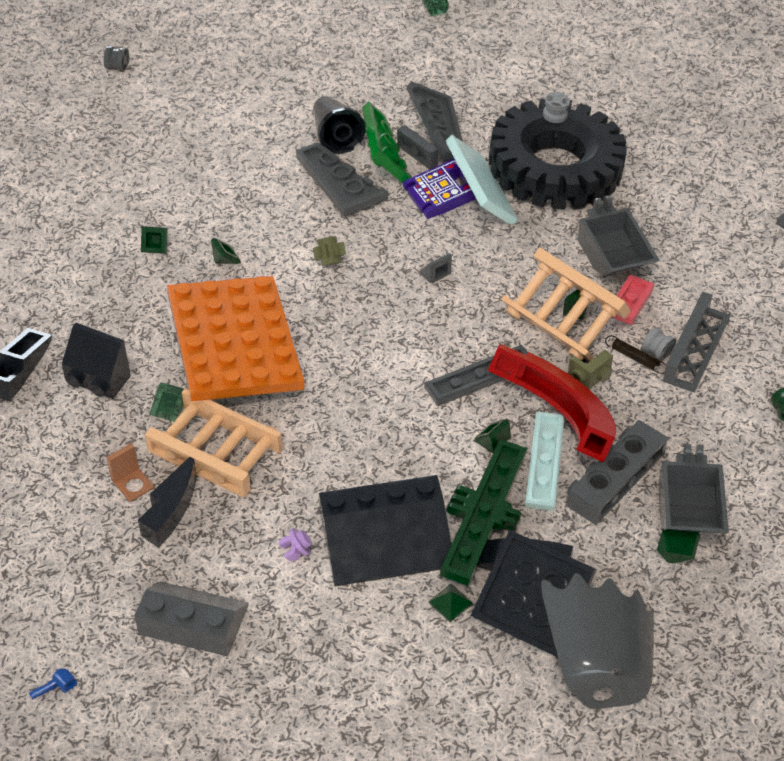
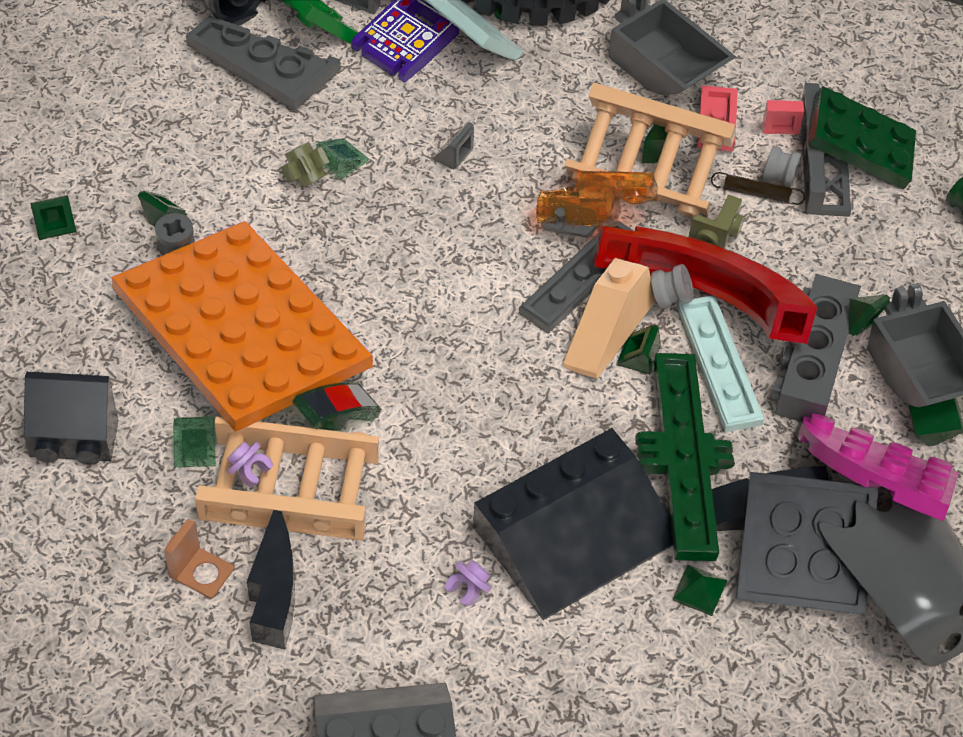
camera: 25 degrees left, 5 degrees up
(188, 417) = (243, 458): none -> lavender plate
(222, 269) = (173, 232): none -> dark grey wheel
(262, 405) = (335, 404): none -> slope
(358, 253) = (342, 156): none -> clear green slope
(481, 405) = (611, 315): none -> light nougat slope
(508, 327) = (594, 201): none -> clear orange plate
(533, 398) = (672, 286): none -> light grey wheel
(617, 566) = (911, 480): none -> dark pink plate
(657, 453) = (864, 310): none -> dark green slope
(677, 311) = (783, 117): none -> coral plate
(727, 340) = (862, 137): none -> dark green plate

